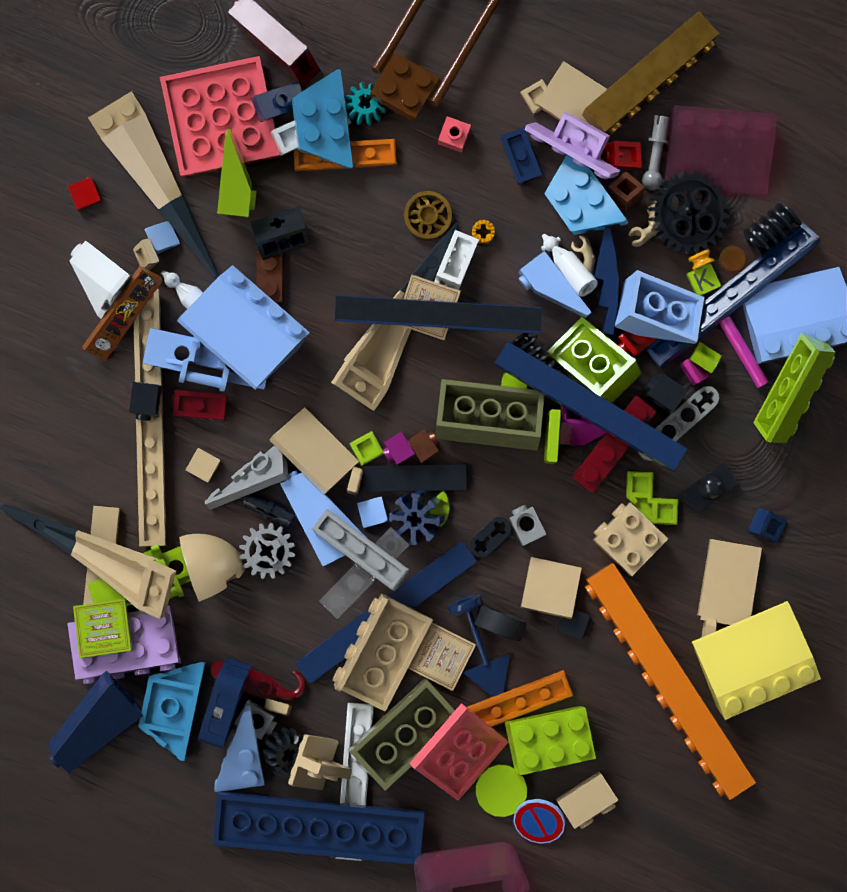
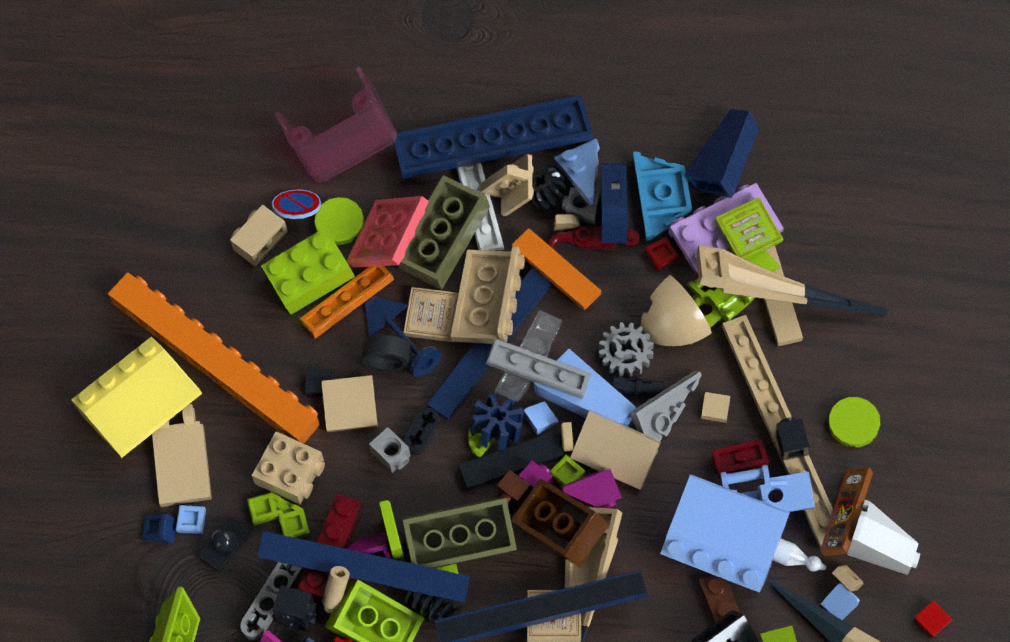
camera: 165 degrees right, 20 degrees down
(78, 405) = (854, 422): none -> lime tile
(195, 643) = (661, 253): none -> red tile
(305, 658) = (557, 269): none -> orange tile
(349, 418) = (595, 489): none -> magenta slope
(393, 390) = (560, 522): none -> reddish brown brick
(622, 395) = (335, 588): none -> tan cylinder
(735, 524) = (190, 519): none -> light blue tile

